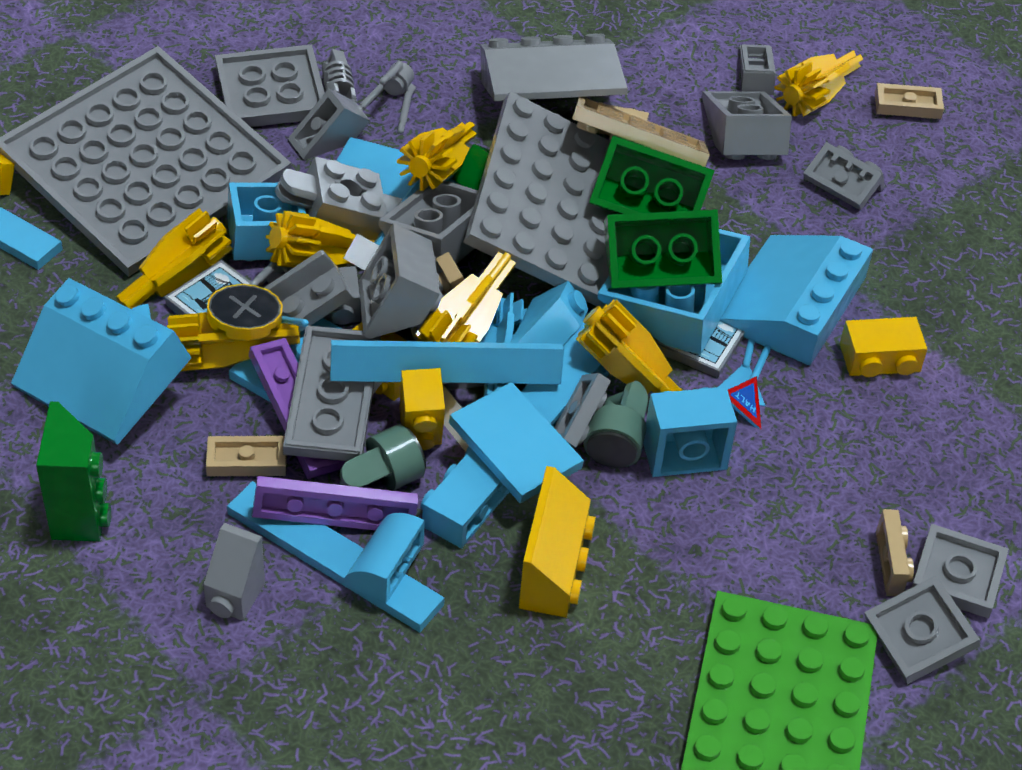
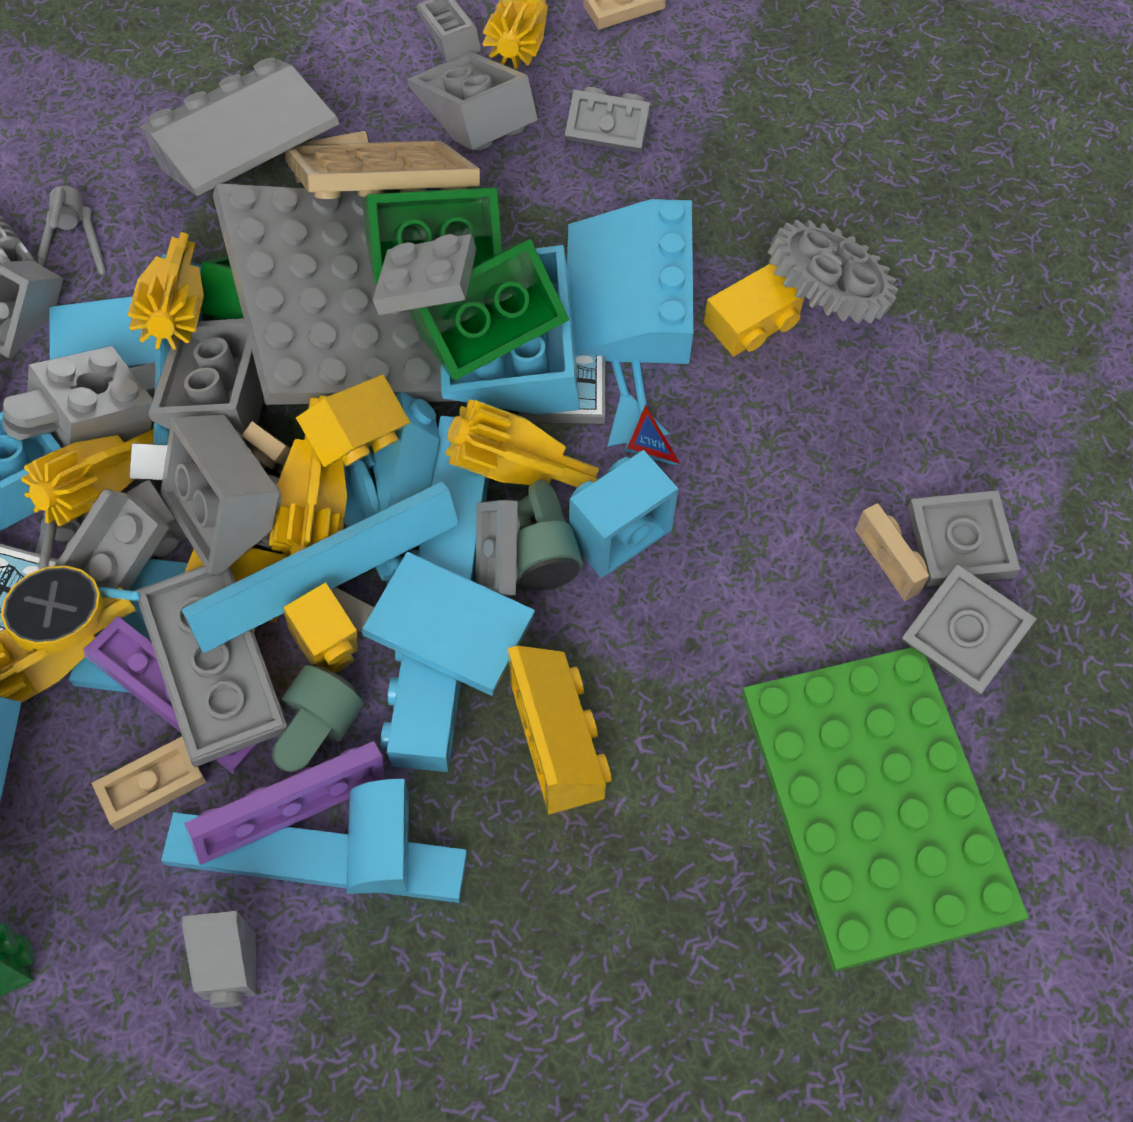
camera: 25 degrees left, 15 degrees up
(520, 277) = (354, 420): none -> yellow brick
(626, 201) = (425, 274): none -> light grey plate
(961, 343) = (832, 271): none -> light grey gear

